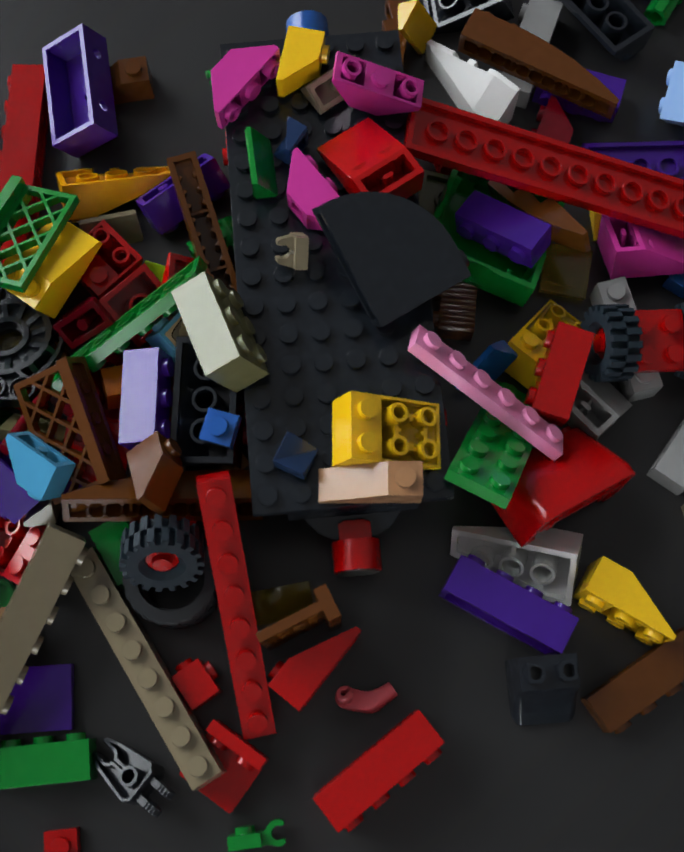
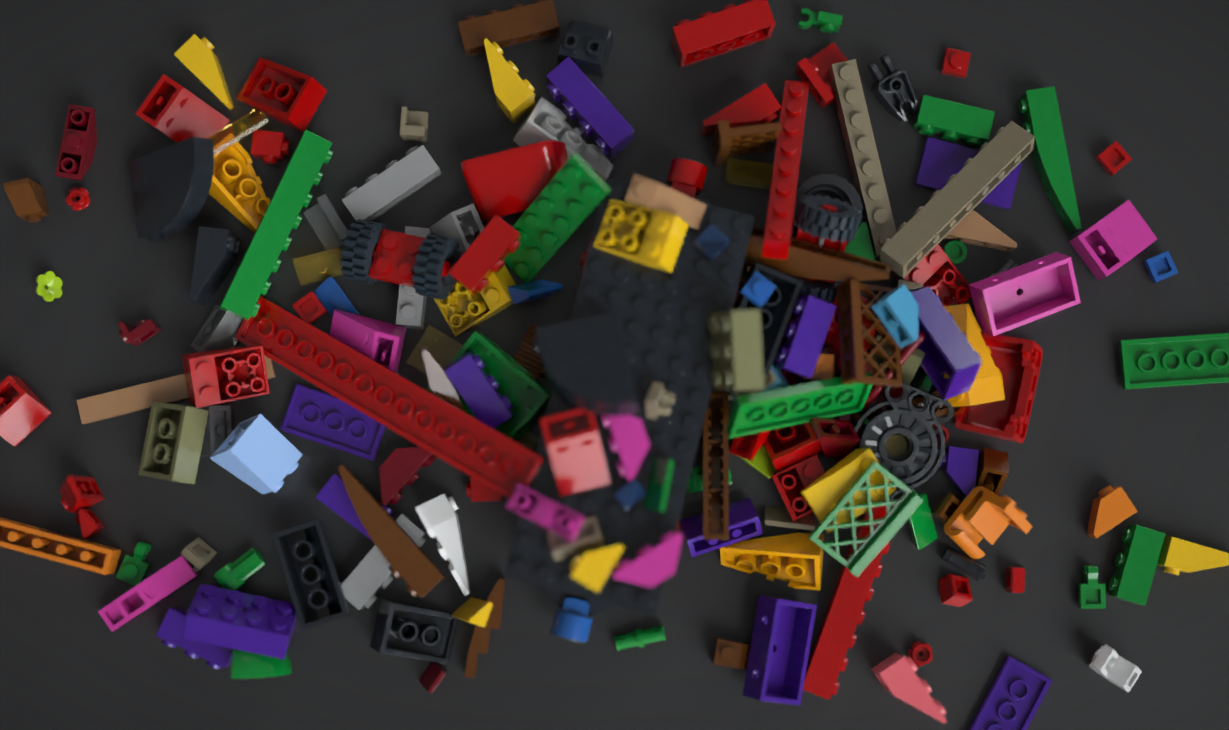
camera: 165 degrees left, 10 degrees up
(155, 470) = (815, 270): reddish brown slope -> none
(197, 682) = (829, 137): red brick -> none
(365, 701) = (714, 83): coral arm -> none
(484, 391) = (552, 250): bright pink plate -> none

